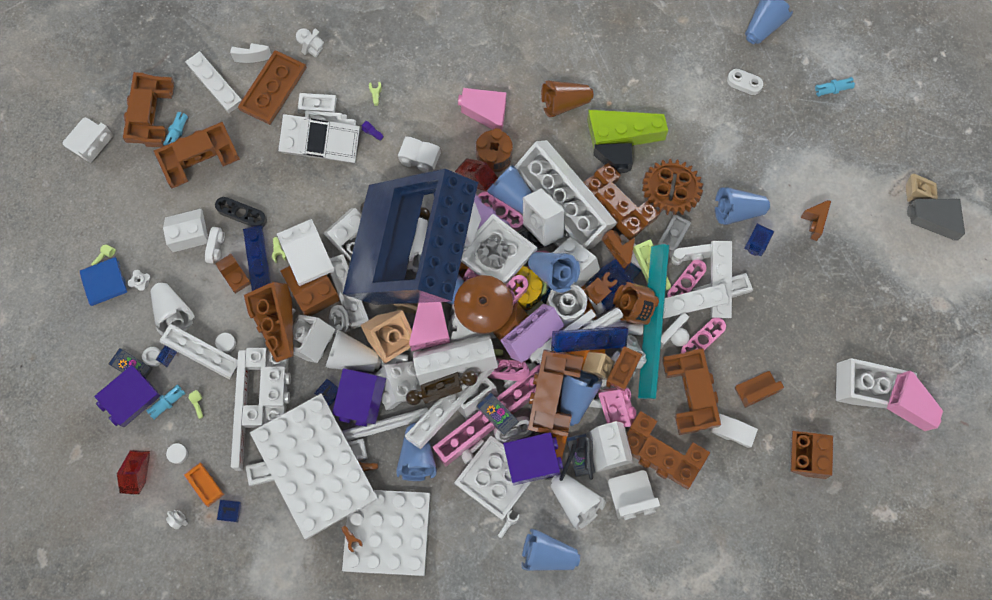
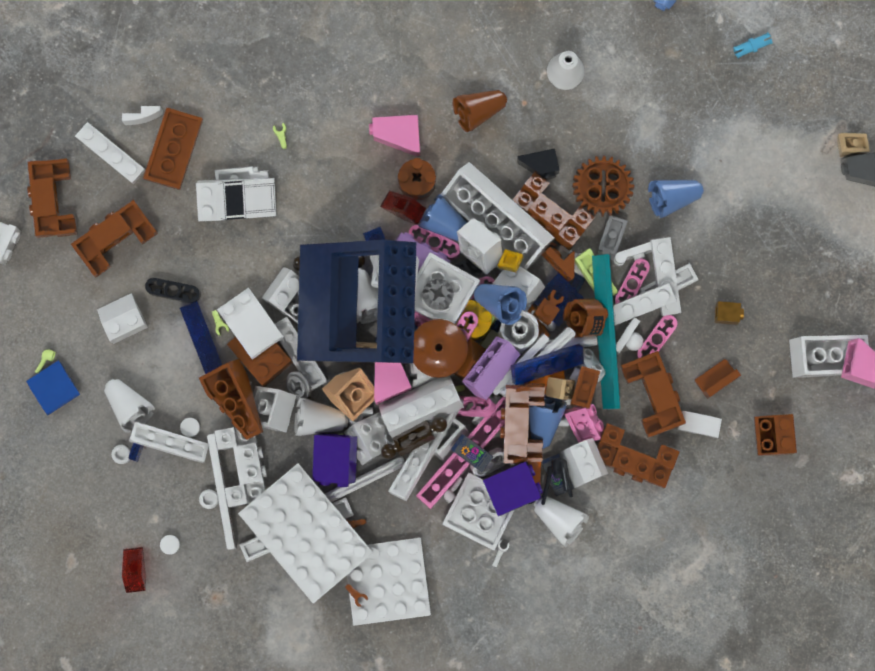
camera: 10 degrees left, 10 degrees up
(123, 360) = (102, 467): tile -> none
(126, 396) = (108, 499): dark purple brick -> none
(133, 282) = (93, 380): white plate -> none
(165, 401) = (146, 496): medium azure pin -> none
(175, 130) = (84, 214): medium azure pin -> none
(176, 519) = (185, 606): white plate -> none
(194, 397) = (173, 488): yellowish green hand -> none
(204, 484) = (203, 569): orange tile -> none
(212, 250) = (155, 323): white plate -> none
(226, 415) = (208, 499): none -> white tile
(229, 511) = (233, 589): clear blue tile -> none
(233, 273) = (179, 355): dark orange slope -> none
(311, 43) = (202, 92): white hips -> none
(316, 102) = (223, 159): white plate -> none
(328, 391) = (302, 457): clear blue tile -> none
(369, 129) = (282, 176): dark purple piece -> none
(415, 462) = (400, 512): medium blue cone -> none
(419, 154) = (340, 196): white brick -> none
(548, 553) = (542, 574): medium blue cone -> none
(570, 236) = (510, 260): none -> yellow tile
(626, 127) = (545, 131): lime wedge -> none
(632, 495) = (612, 504): white bracket -> none
(654, 77) = (565, 70): none -> white cone
(745, 81) = (660, 56): white plate -> none
(759, 240) = (697, 228): clear blue brick -> none
(778, 326) = (728, 313): none -> pearl gold brick
(818, 216) = (753, 190): dark orange slope -> none

